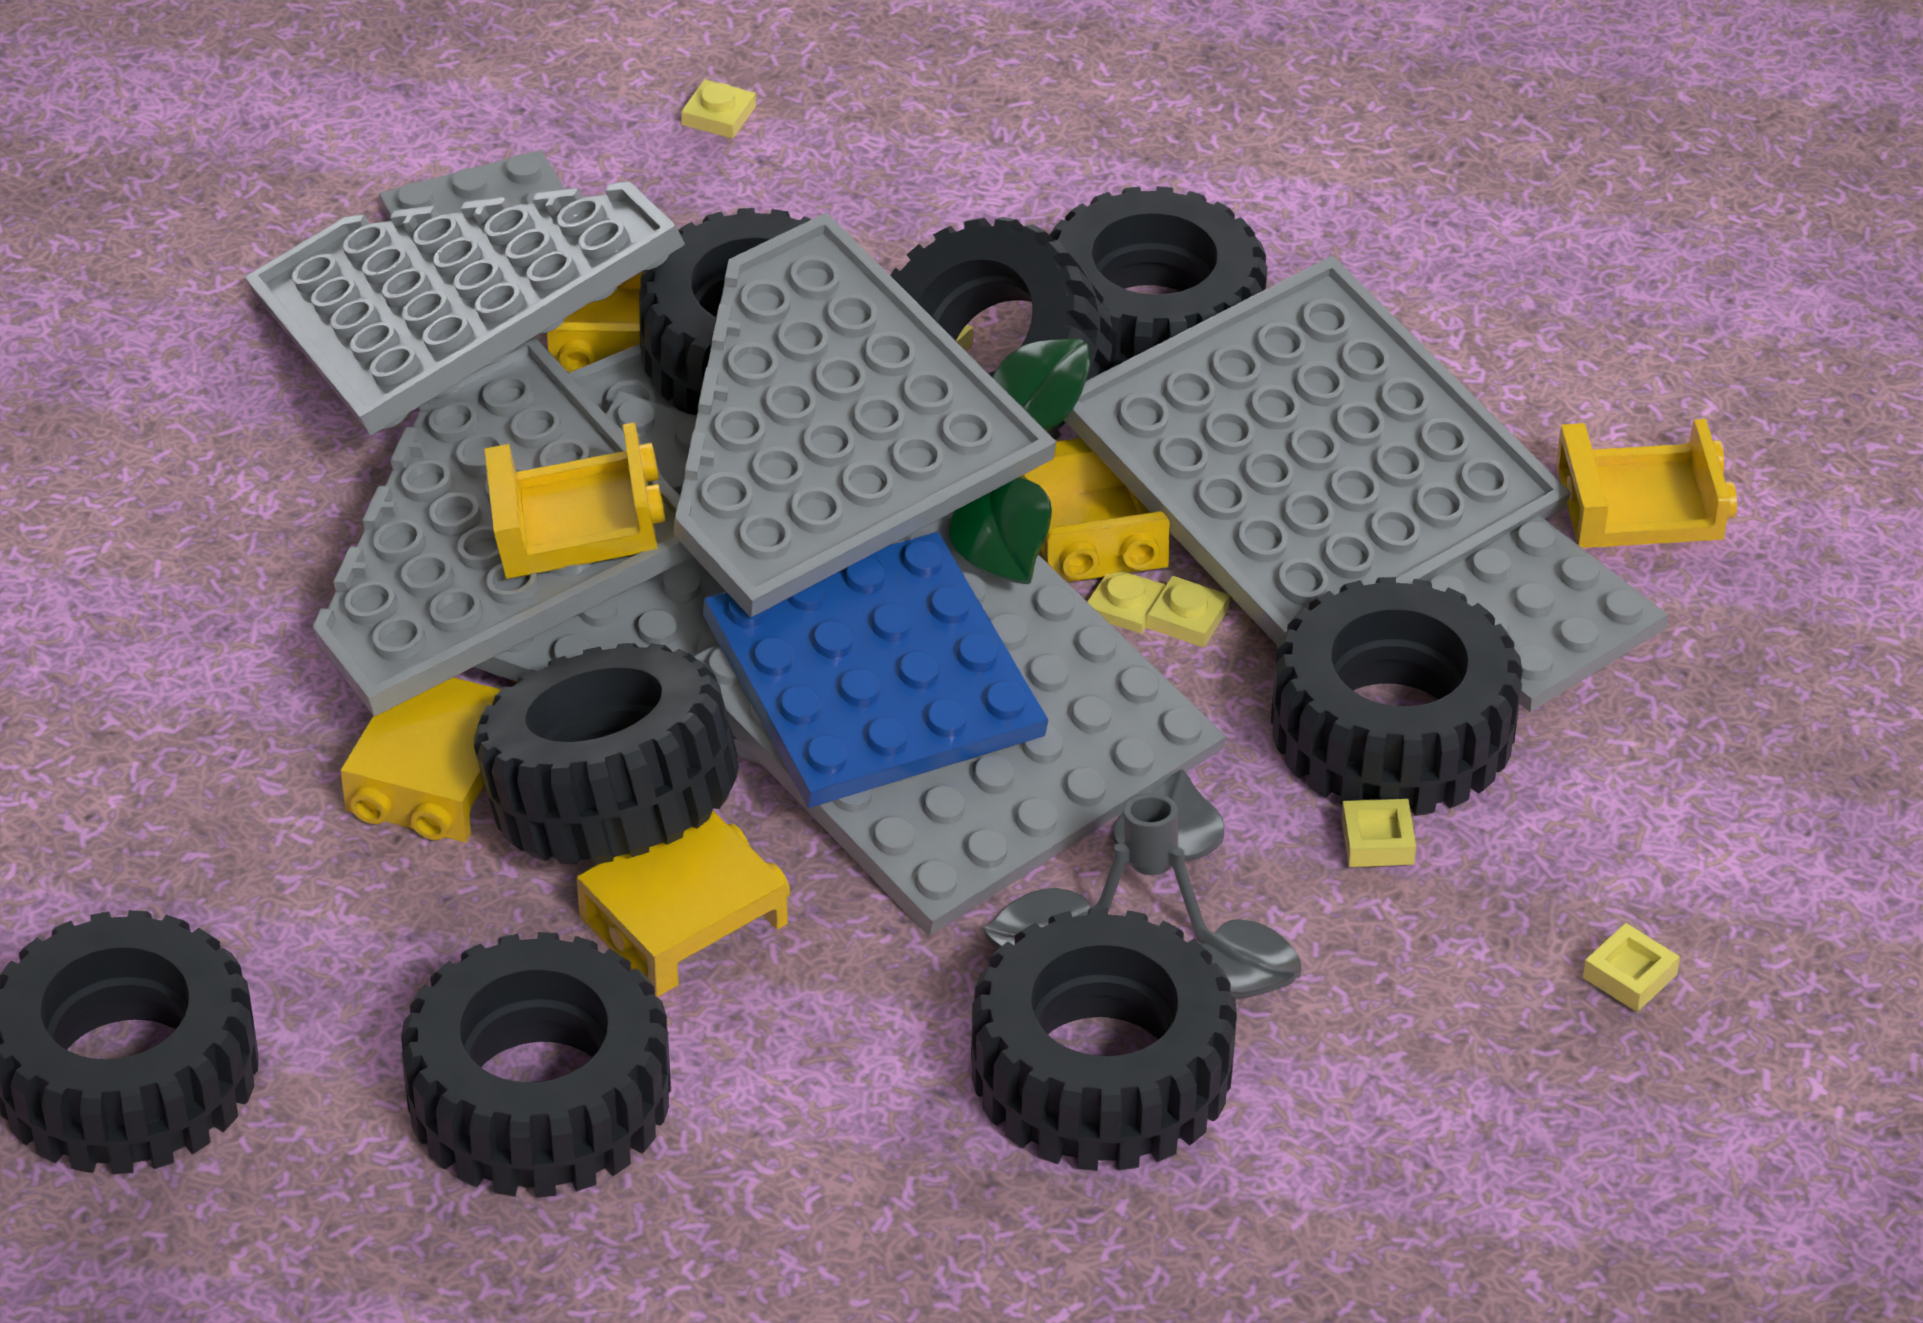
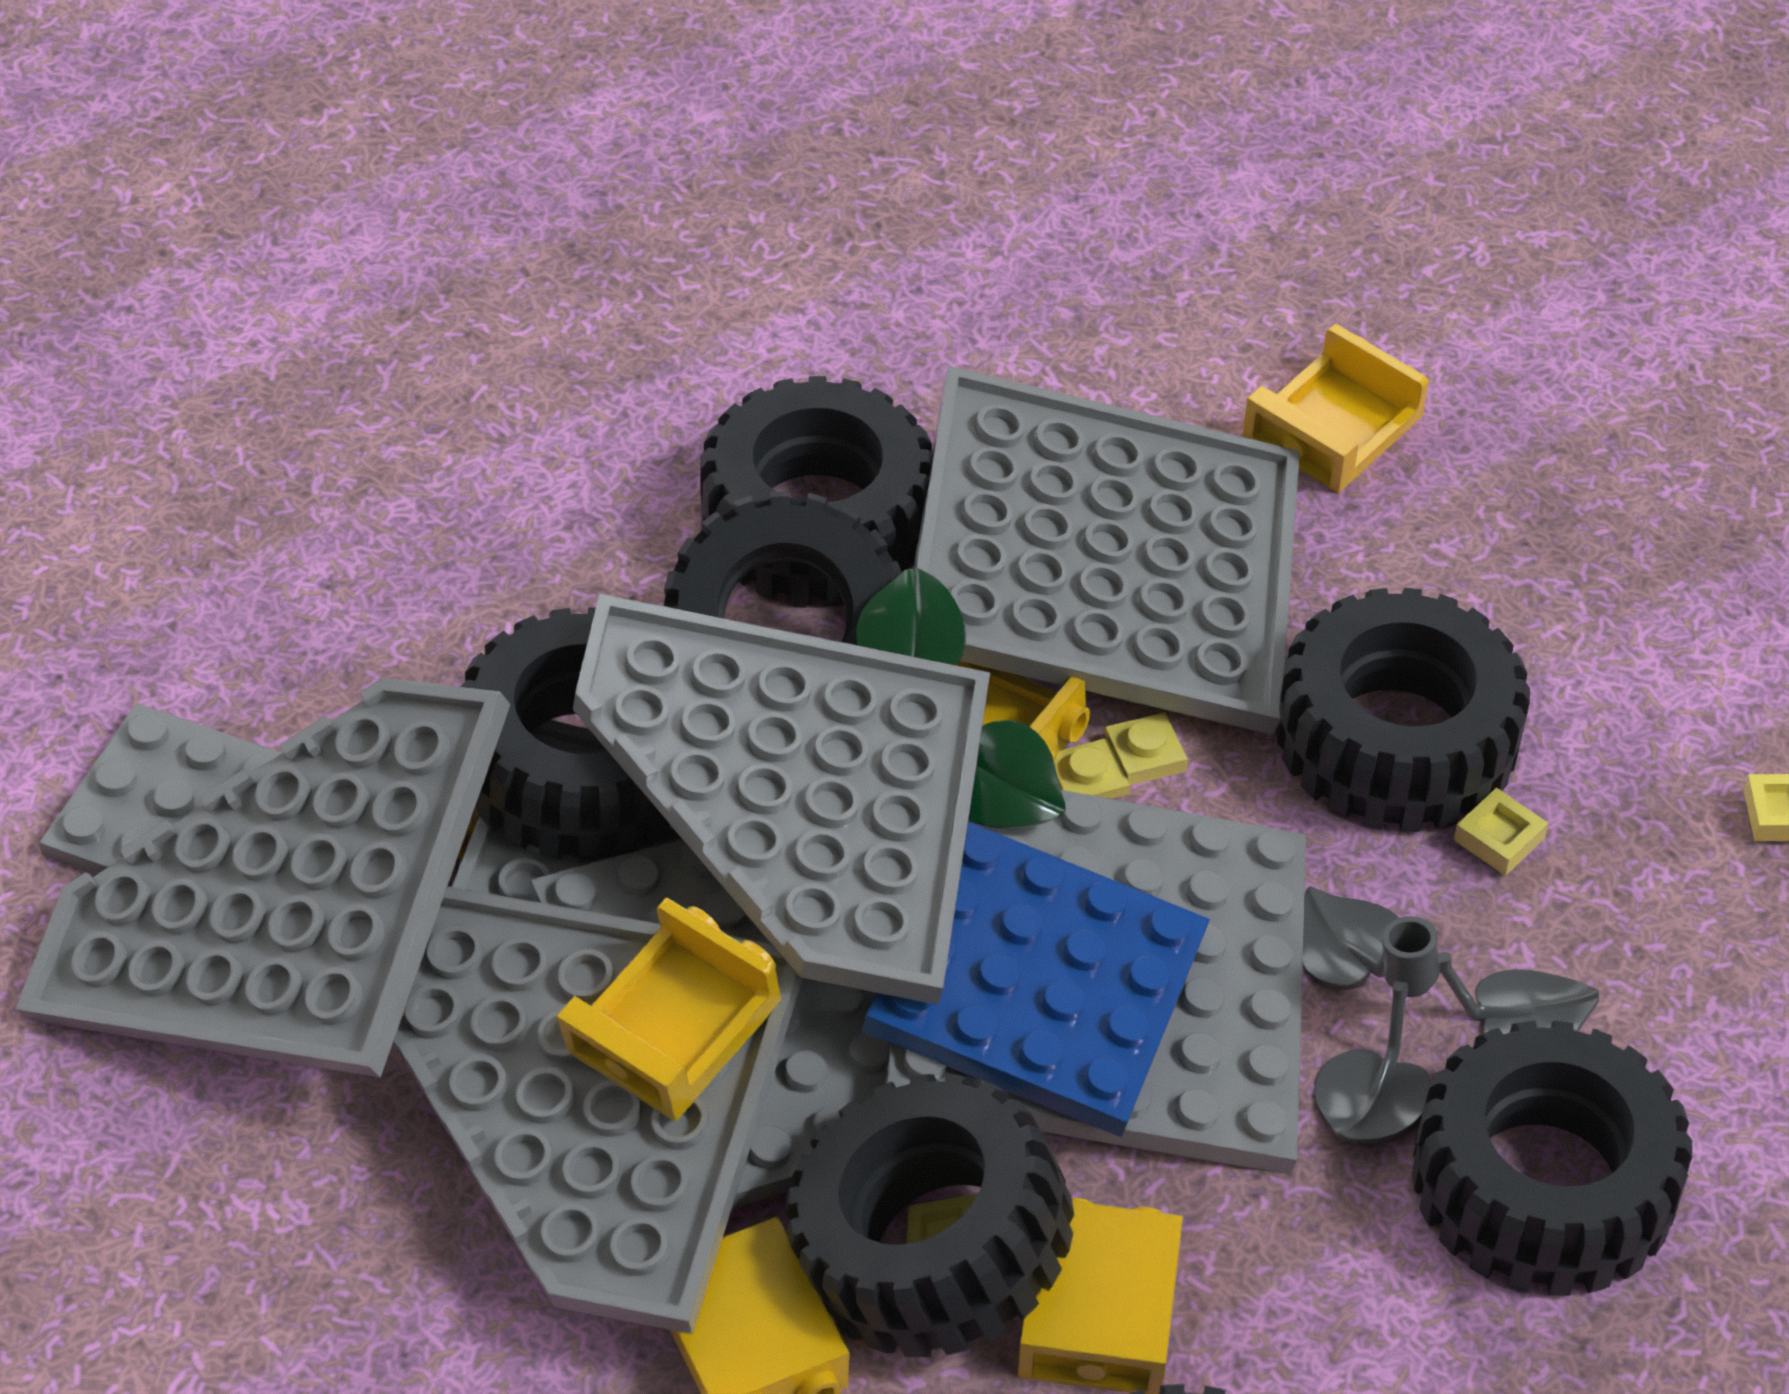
camera: 45 degrees left, 5 degrees up
(718, 108) = (238, 561): light yellow plate -> none
(1556, 606) = (1375, 542): light grey plate -> none

